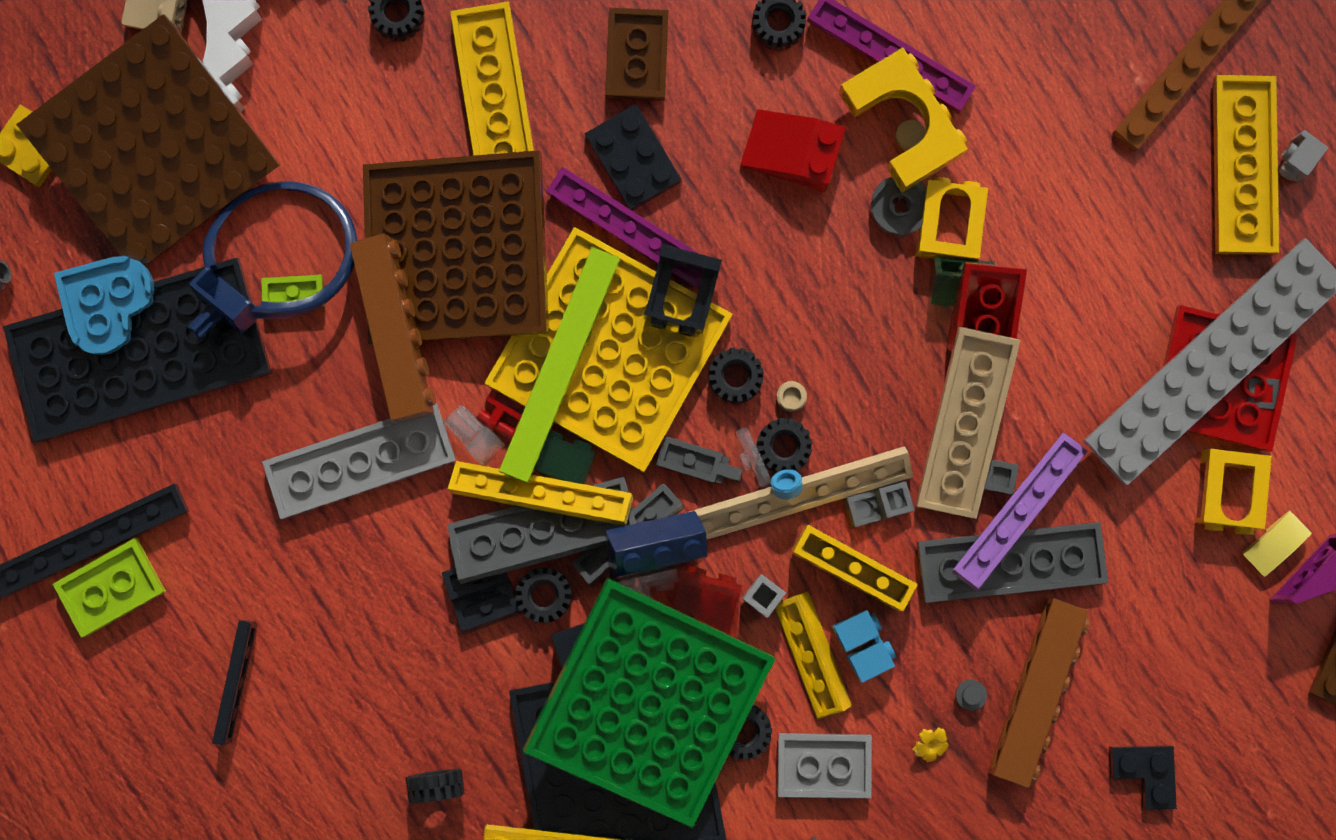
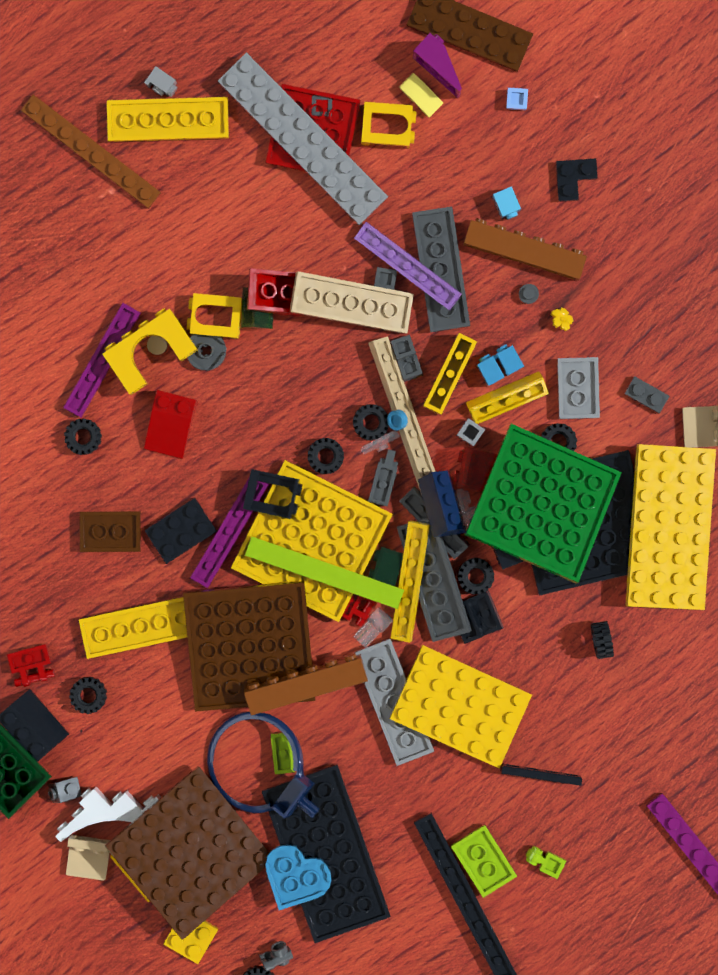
camera: 90 degrees left, 5 degrees up
(96, 689) = (550, 864): none -> lime plate
(345, 562) = (460, 706): none -> yellow plate
(791, 396) = (337, 418): tan tile -> none
(1110, 667) = (506, 203): none -> medium azure brick
(1269, 690) = (517, 99): none -> light blue plate

